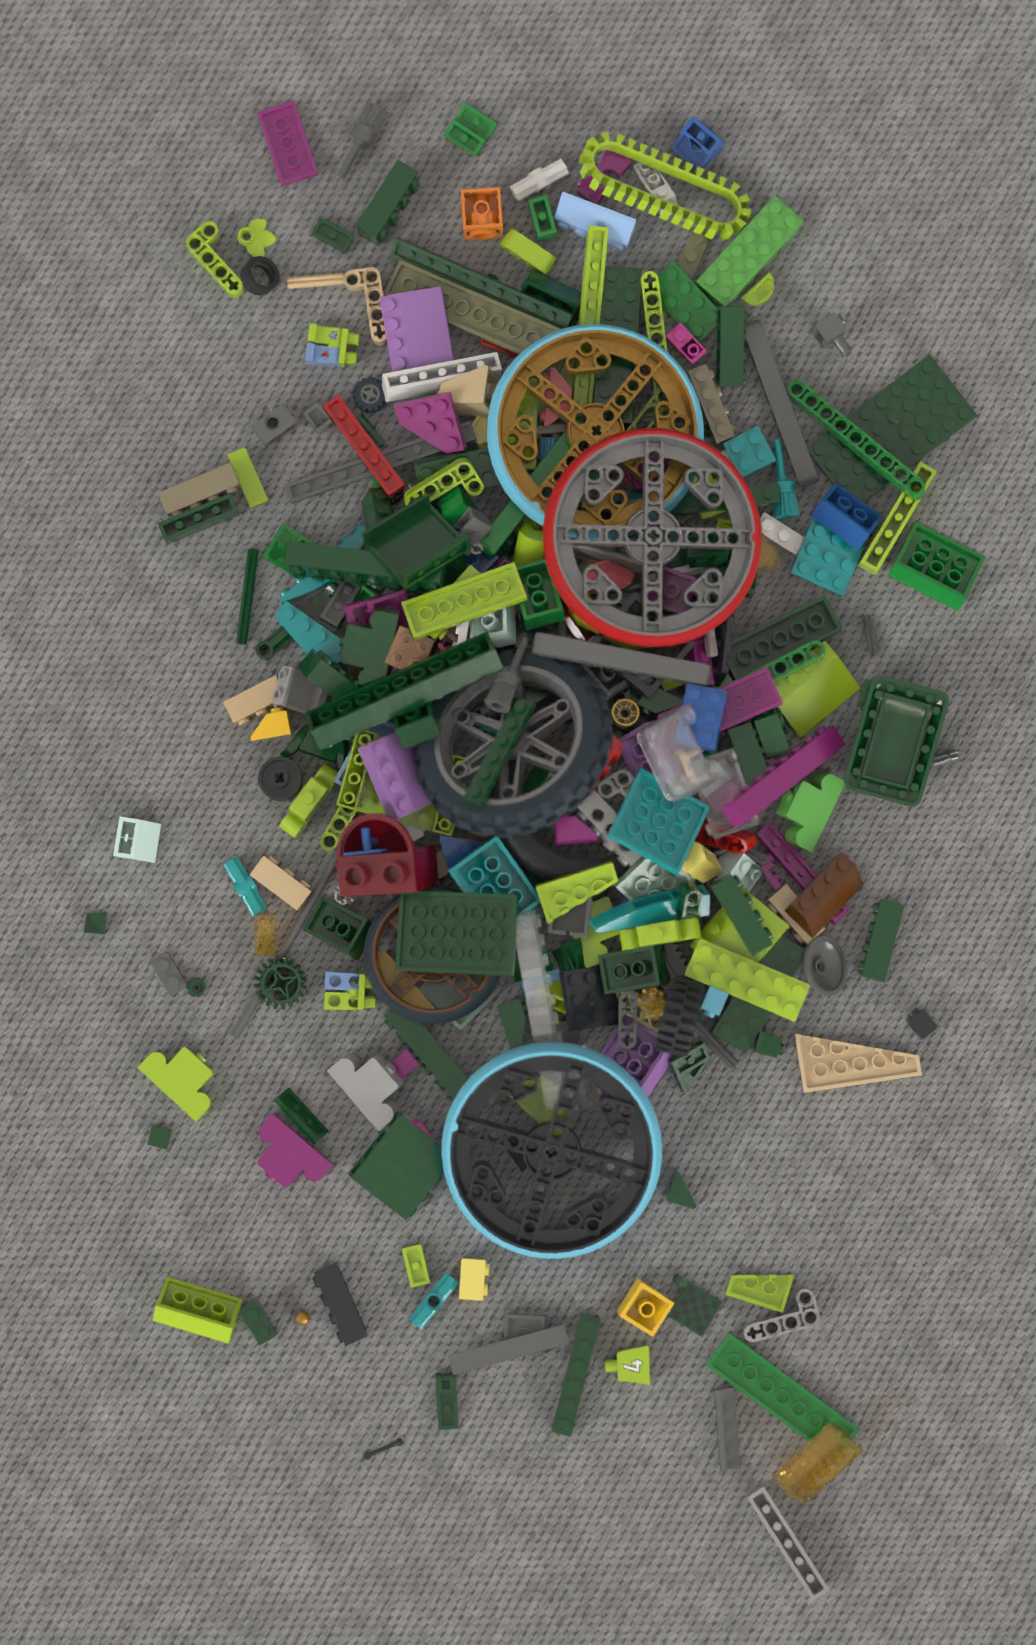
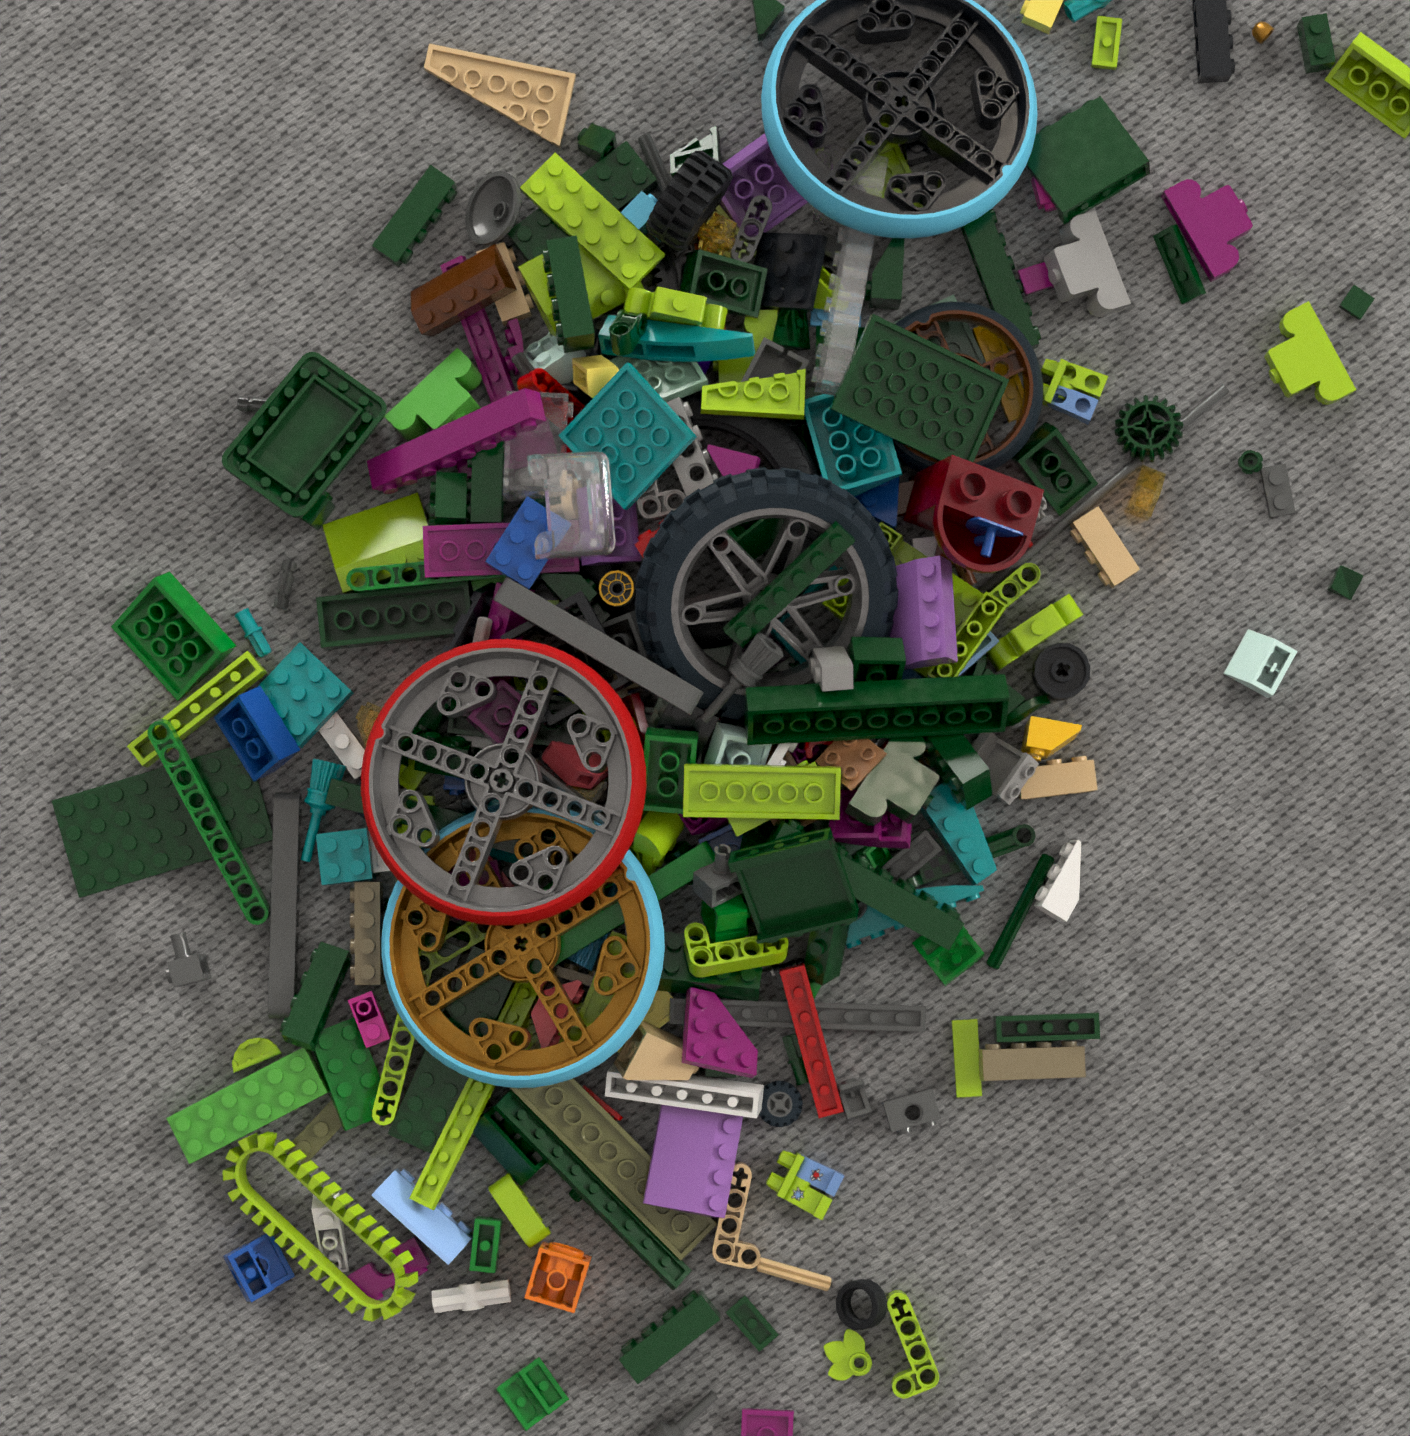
camera: 160 degrees left, 0 degrees up
(223, 621) = (1062, 888): none -> white slope
(245, 886) = (1149, 559): teal piece -> none
(446, 705) = (832, 668): none -> light grey brick
(879, 590) = (253, 633): none -> teal axle
(921, 1023) = (405, 103): black brick -> none

